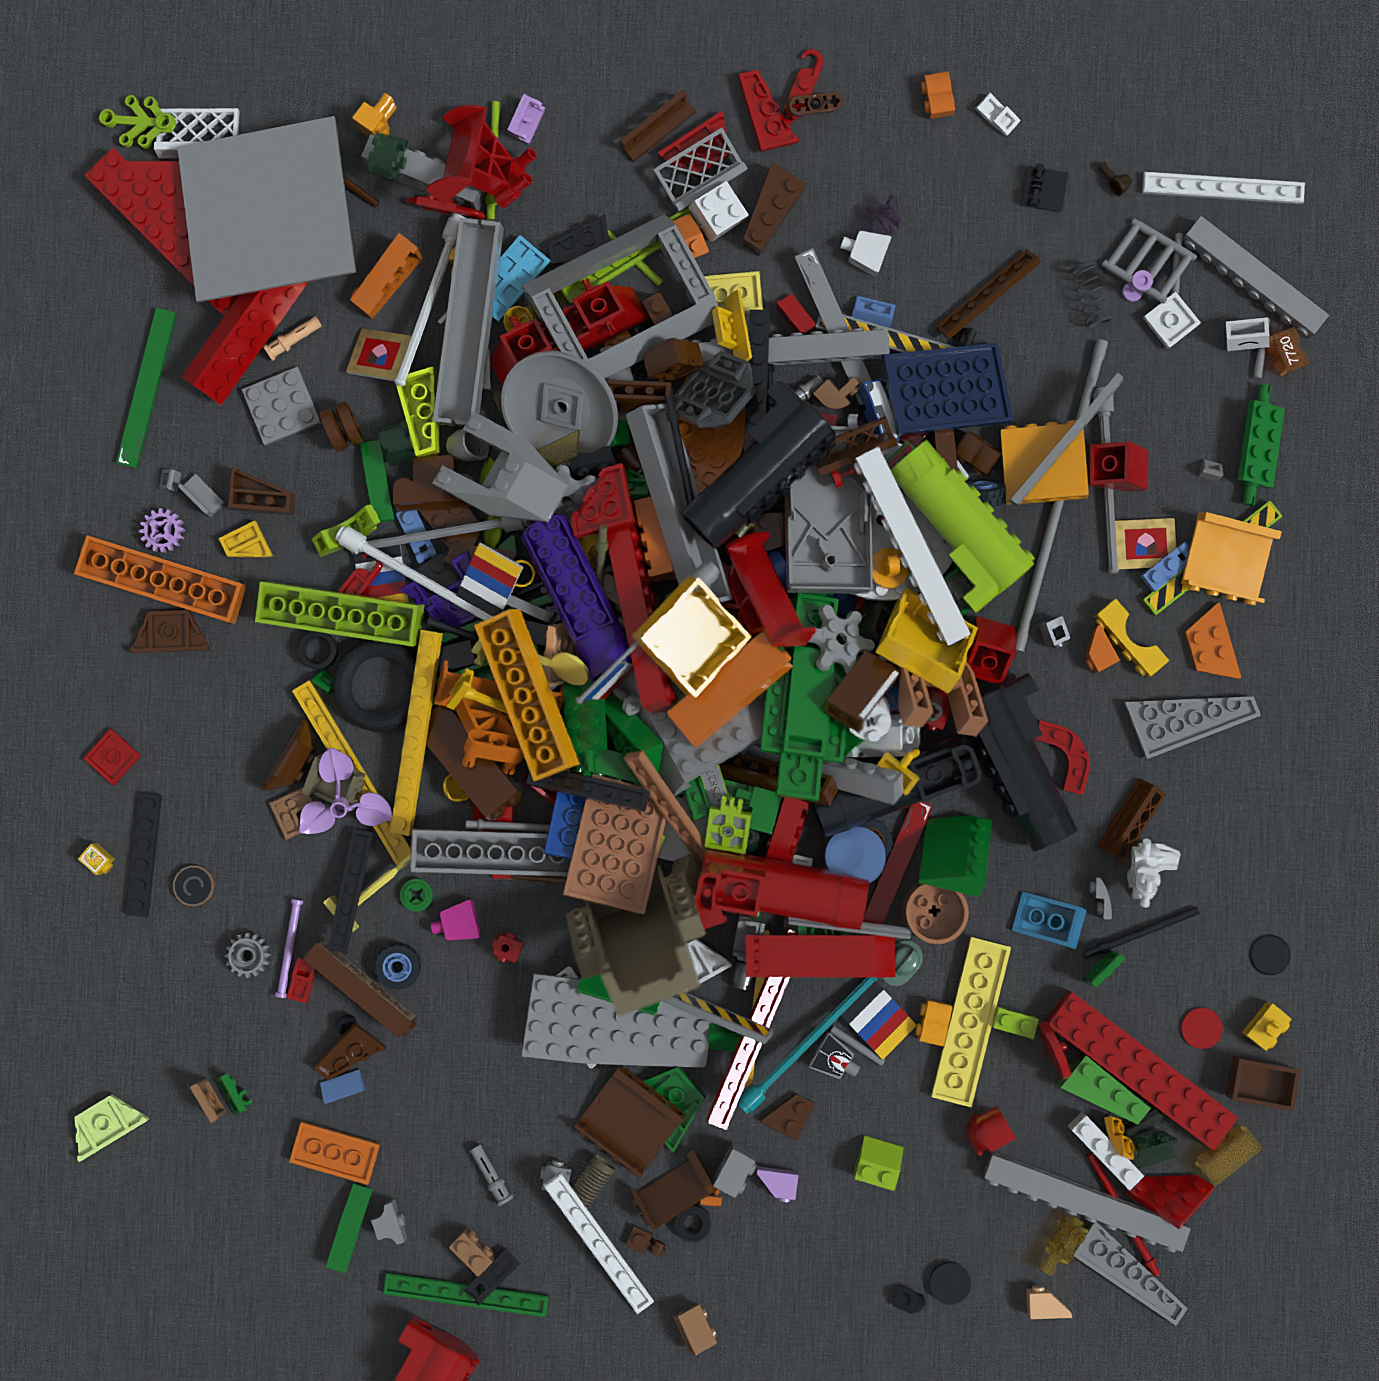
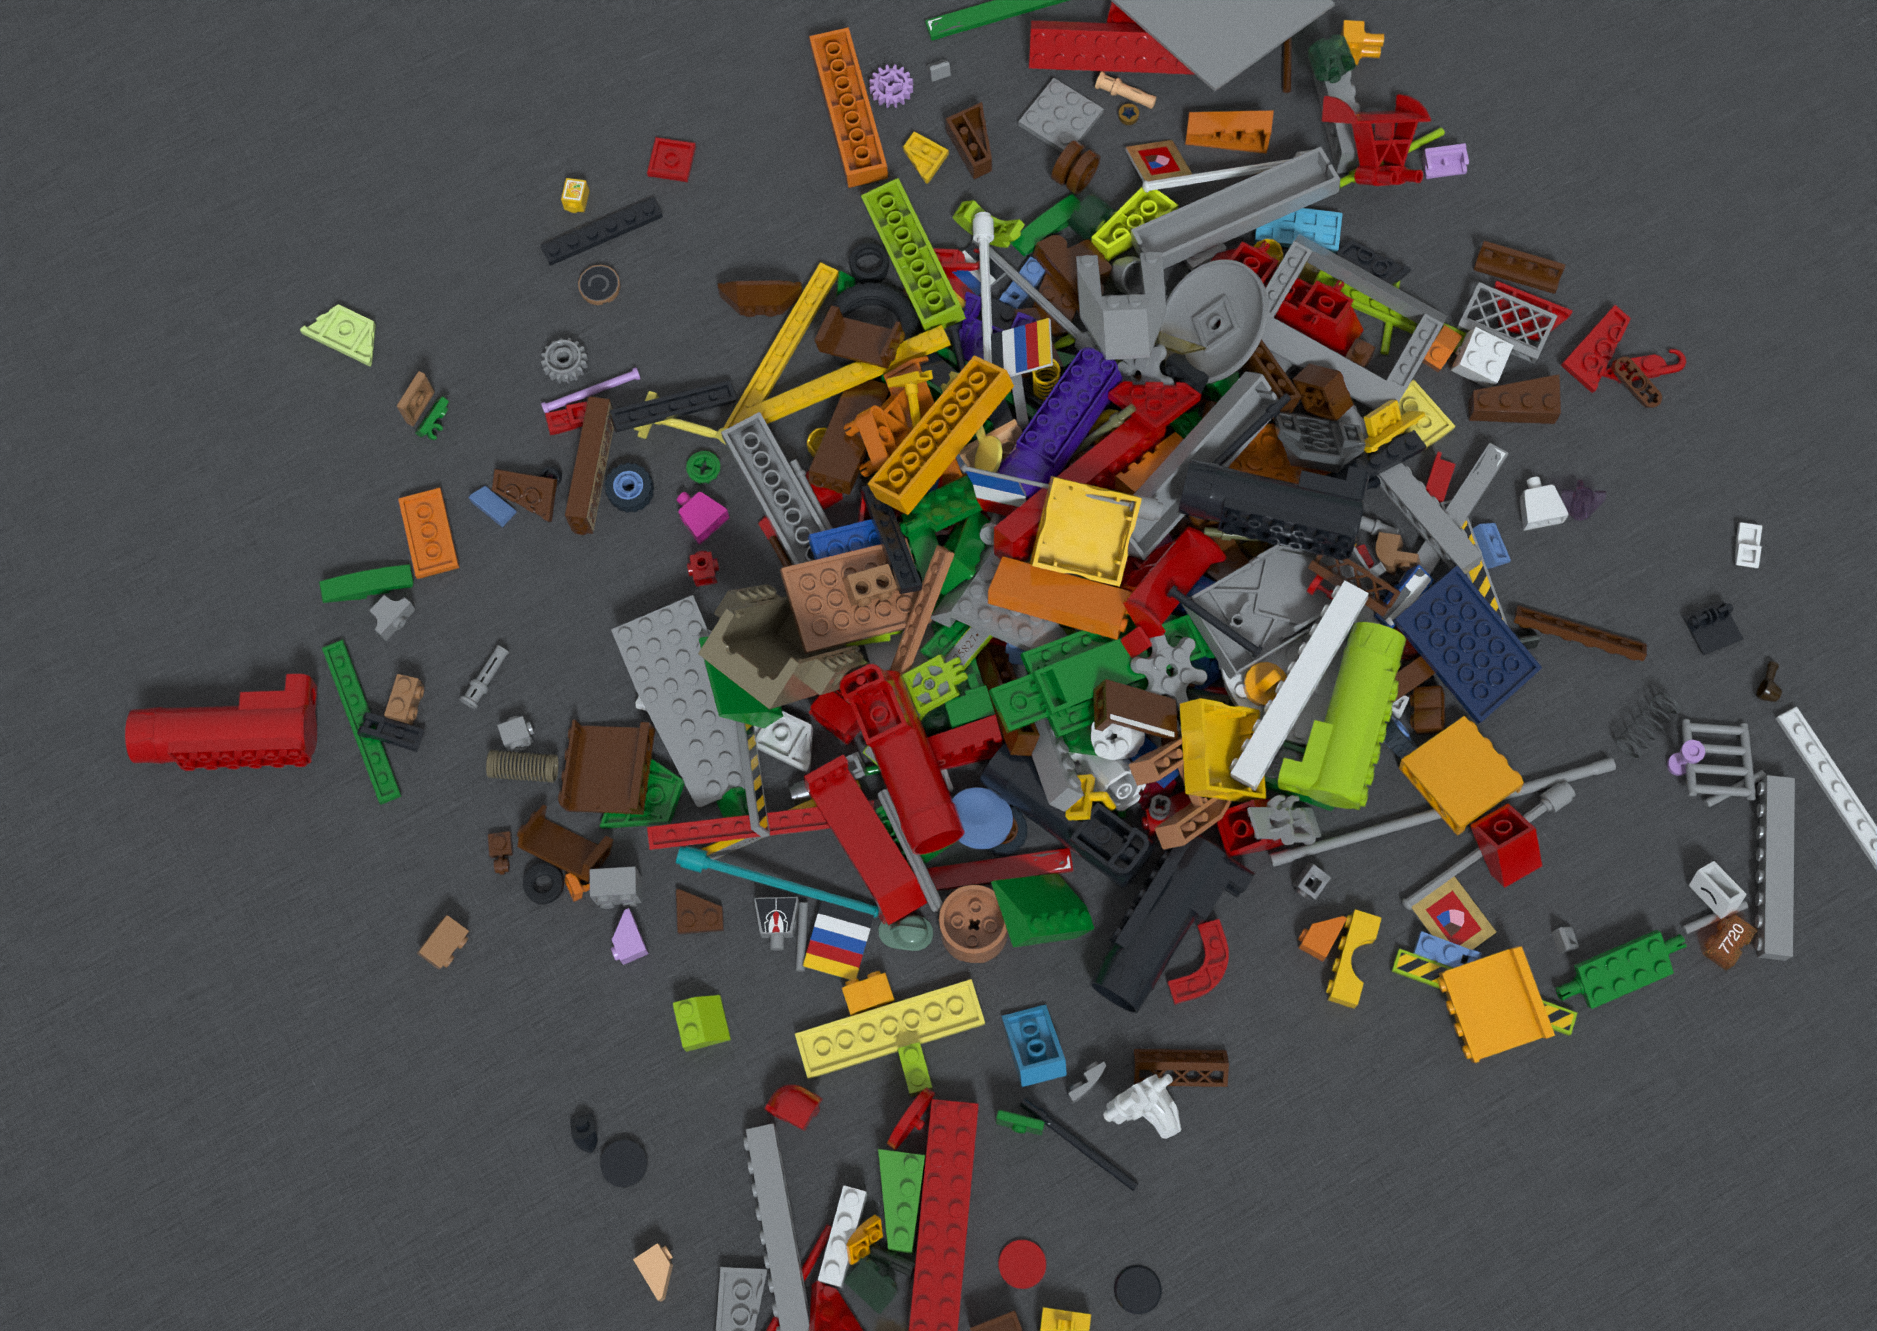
camera: 60 degrees right, 15 degrees down
(169, 633) = (807, 141): reddish brown wing -> none
(202, 495) = (941, 99): light grey panel -> none
(286, 812) = (713, 320): medium nougat tile -> none
(315, 348) = (1128, 114): none -> pearl gold tile
(317, 818) = (723, 343): lavender plant -> none
(327, 790) = (761, 339): dark tan panel -> none
(391, 705) = (858, 339): none -> reddish brown panel
(431, 204) = (1317, 131): red plate -> none
(598, 1242) = (475, 805): white tile -> none
(614, 828) = (867, 580): none -> medium nougat brick
(805, 654) = (1136, 642): none -> red slope
(864, 562) = (1214, 621): none -> black bar
(938, 95) = (1725, 483): orange brick -> none
(1002, 621) = (1288, 823): none -> light grey piece
(1063, 1244) = (729, 1253): clear yellow brick -> none
(1066, 440) = (1496, 774): light grey tile -> none
(1171, 320) = (1678, 815): white plate -> none
(1174, 723) = (1304, 1054): light grey wing -> none
(1211, 645) = (1400, 1043): orange wing -> none

